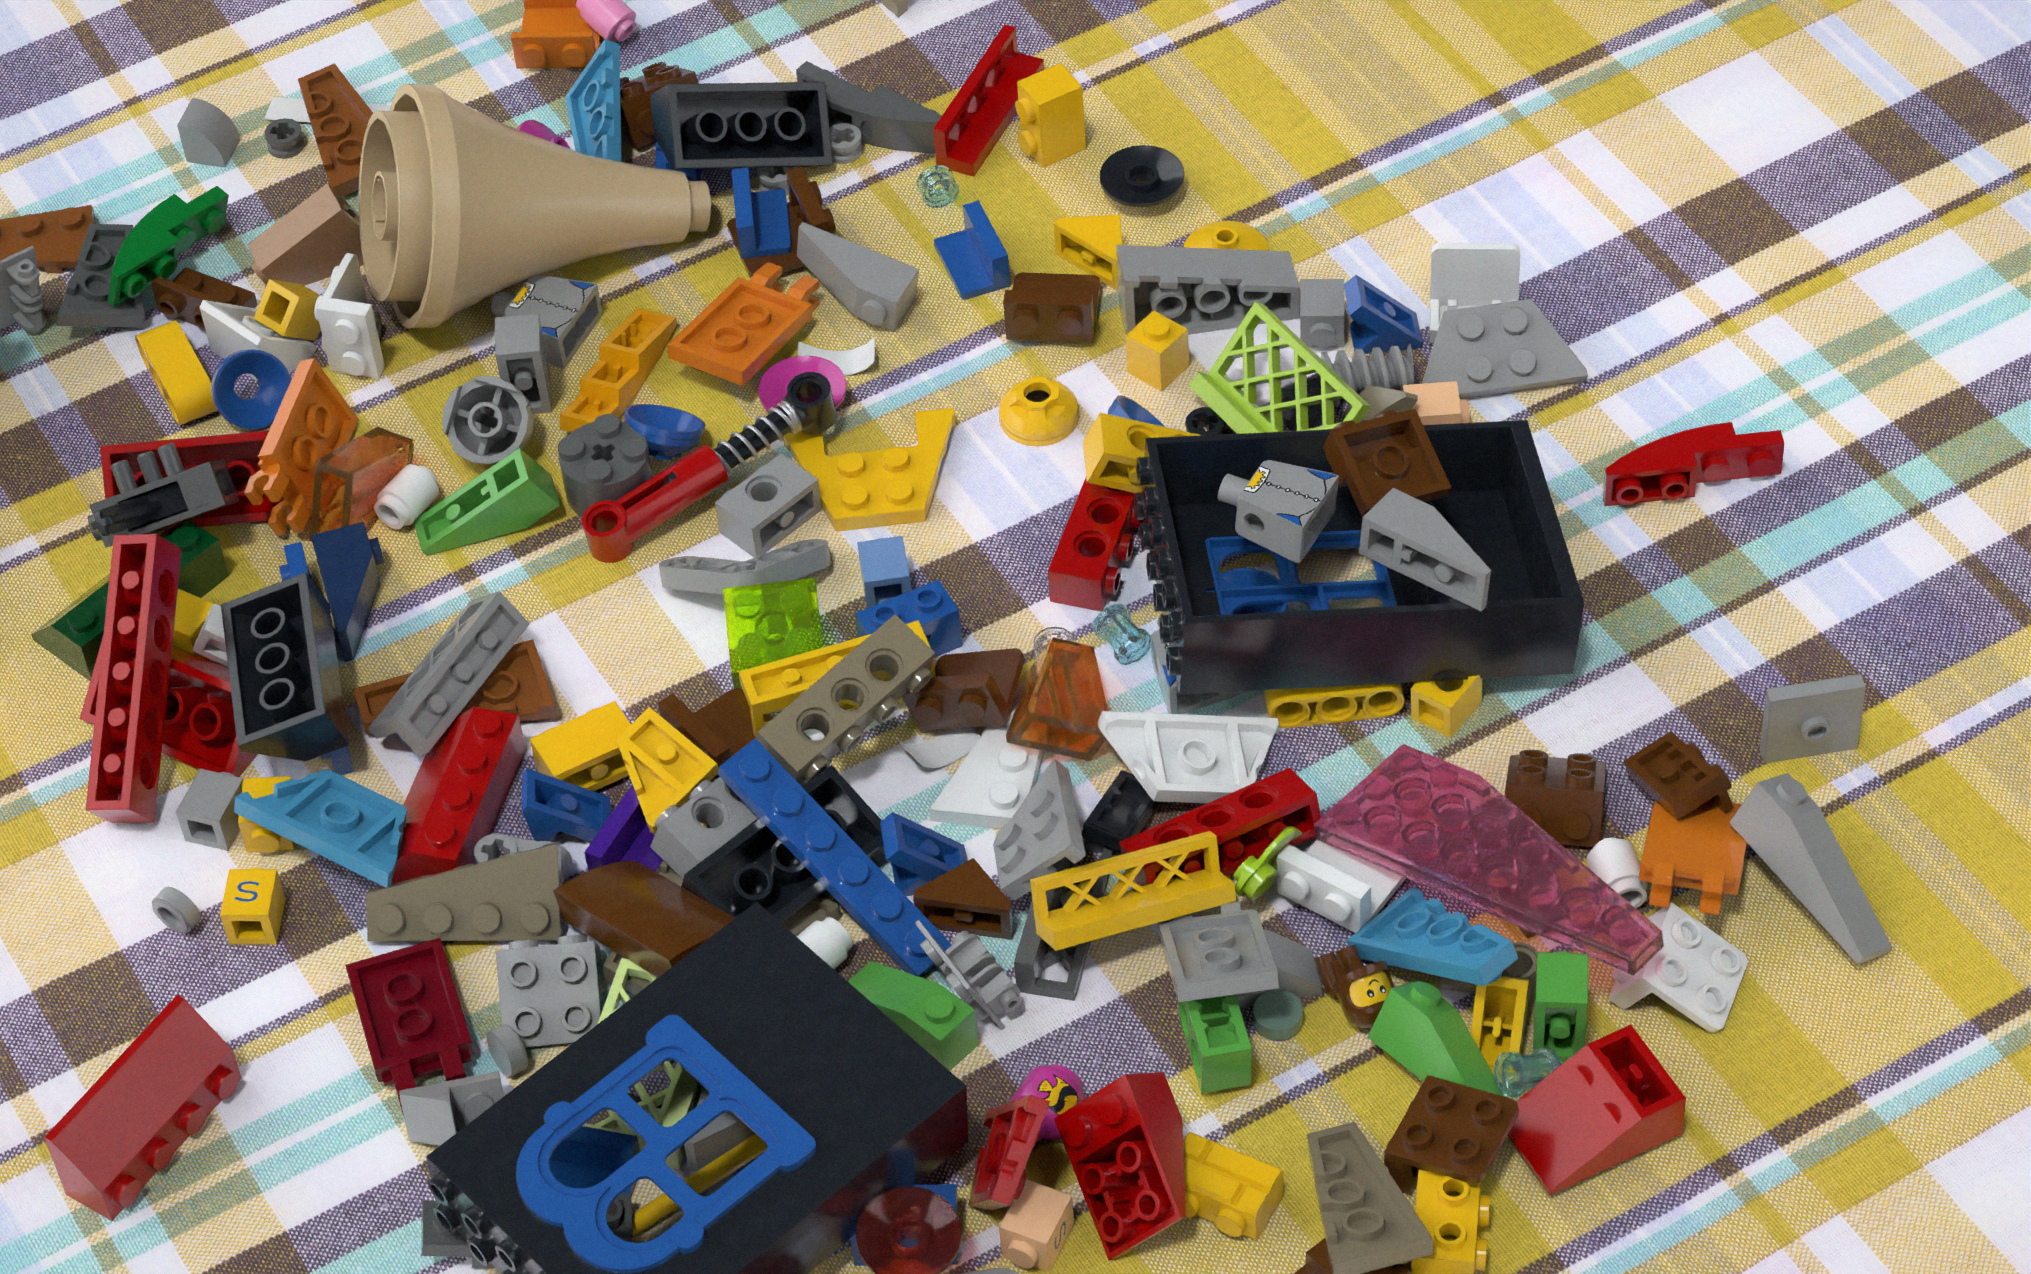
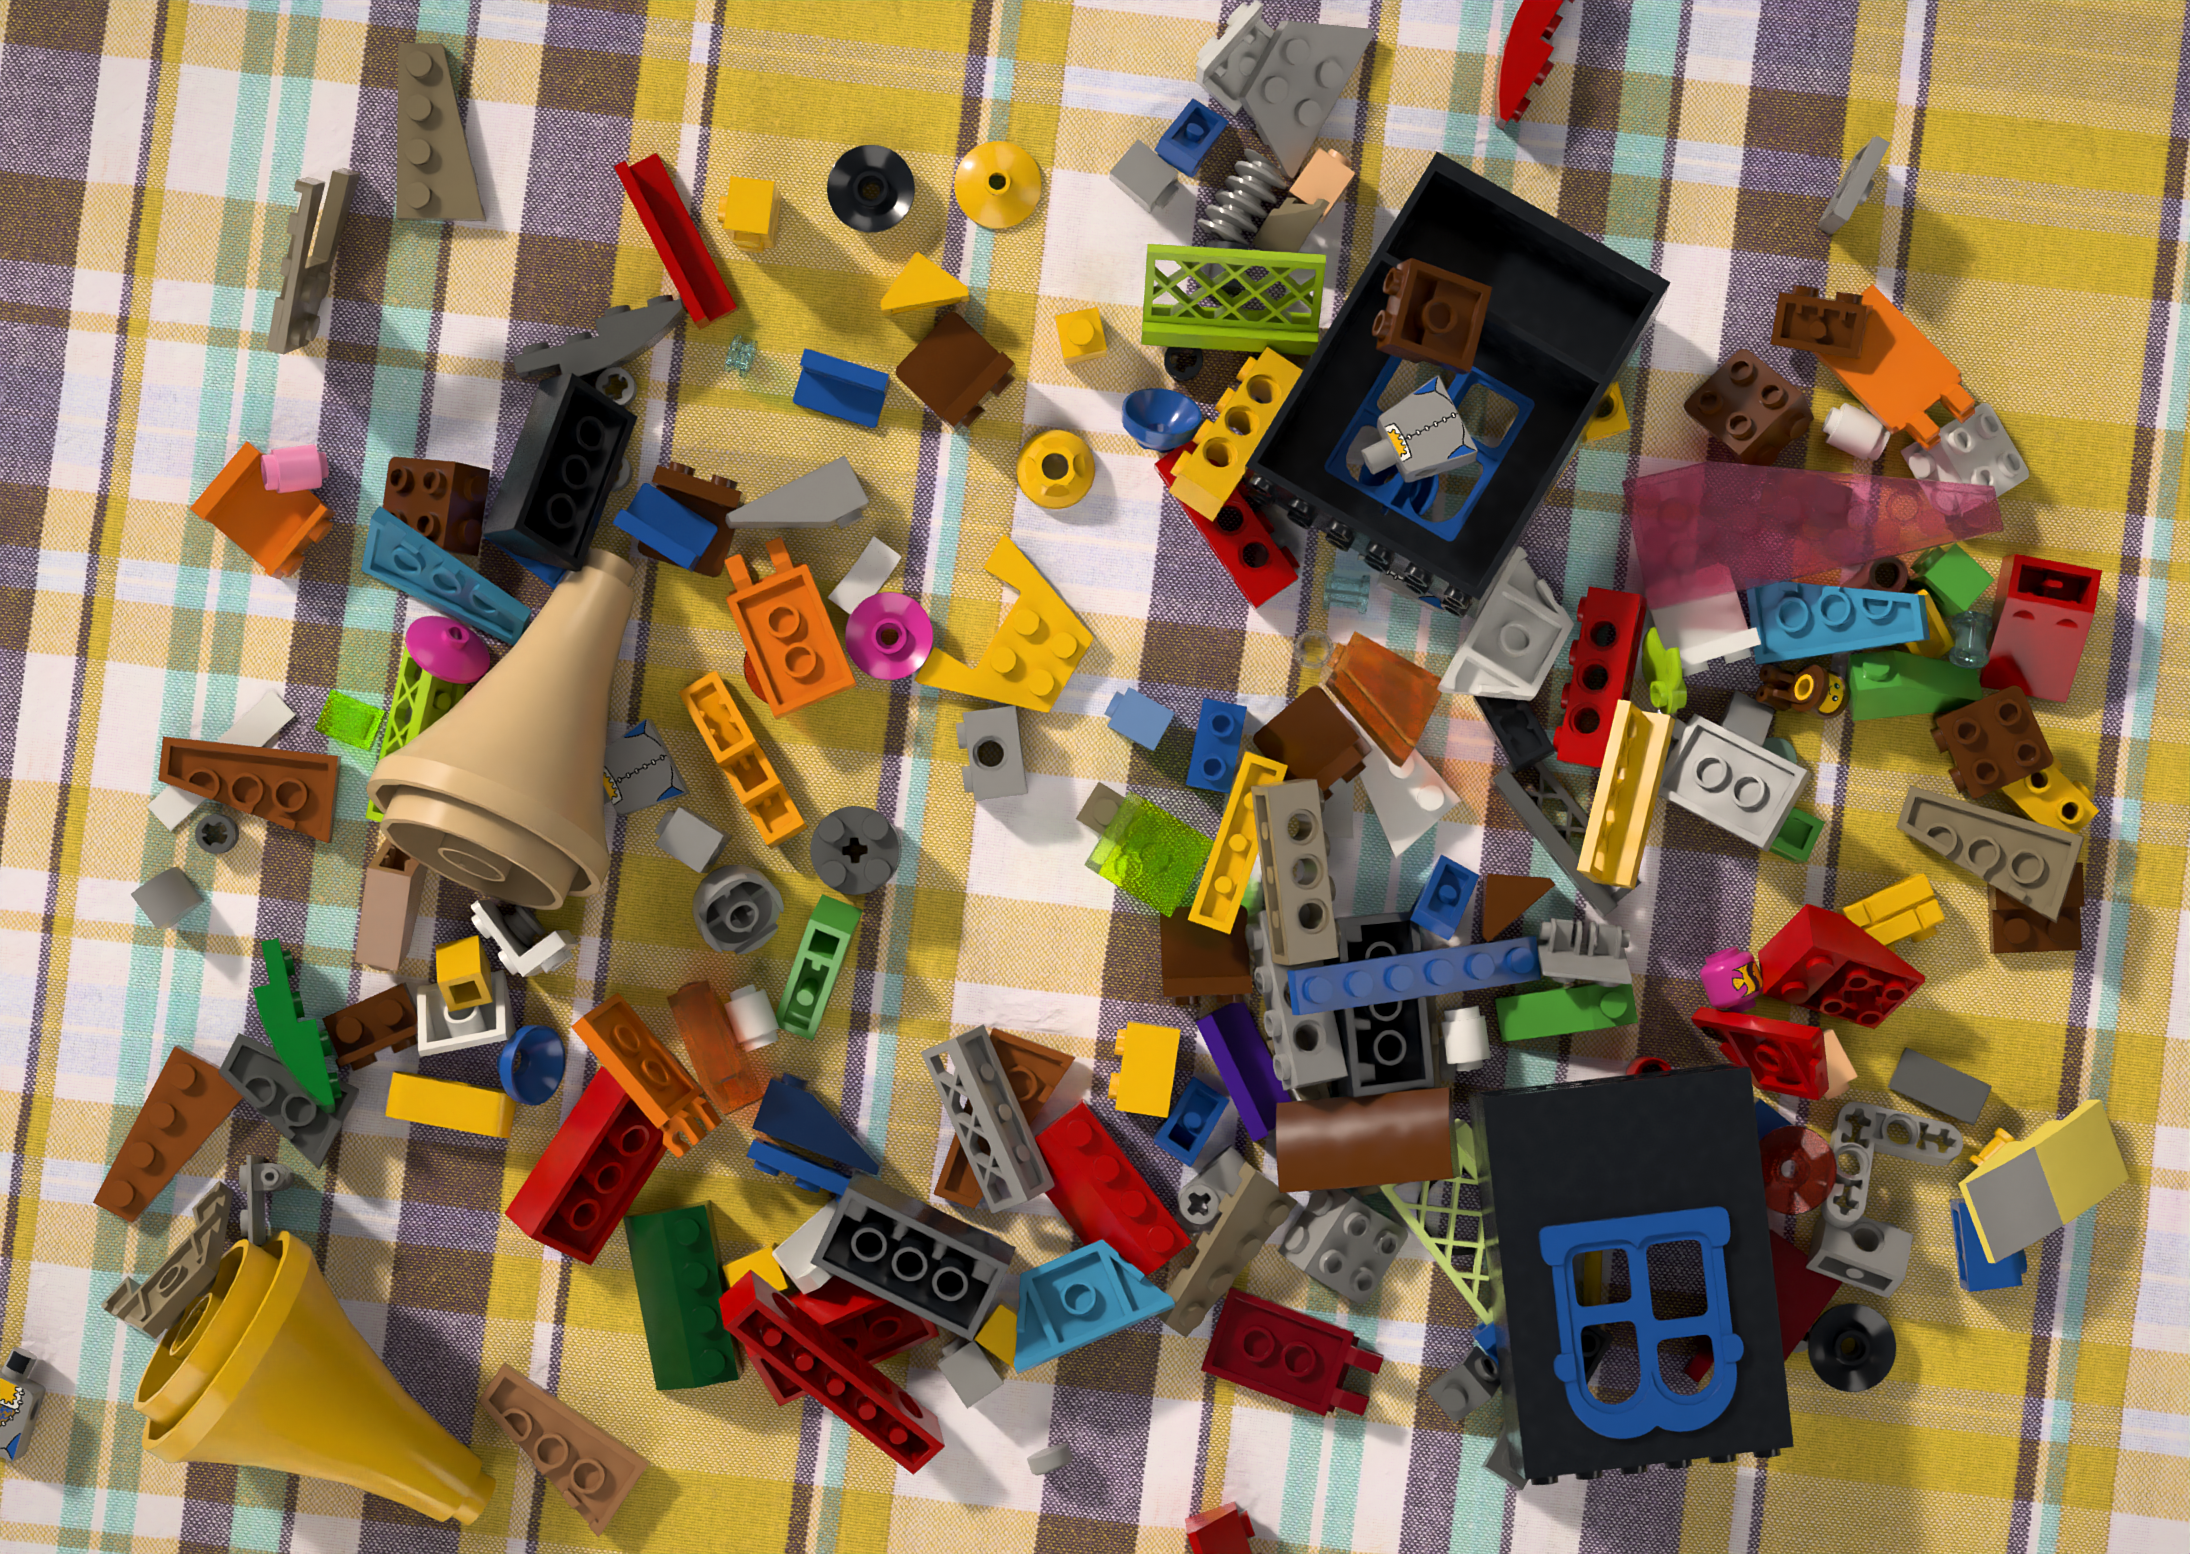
camera: 55 degrees left, 40 degrees up
(162, 500) = (632, 1227): dark grey piece -> none
(252, 906) = (1091, 1401): yellow brick -> none
(444, 1108) = (1397, 1390): light grey slope -> none
(507, 1050) = (1376, 1309): light grey tile -> none
(616, 524) = (926, 780): piece -> none
(662, 764) = (1230, 1036): yellow wing -> none
(665, 429) = (841, 763): blue piece -> none
(713, 574) = (1068, 832): light grey beam -> none
(1039, 833) = (1511, 813): light grey wing -> none
(1204, 285) = (1050, 247): light grey wedge -> none
(1425, 547) = (1540, 363): light grey slope -> none
(1803, 852) = (1953, 297): light grey wedge -> none

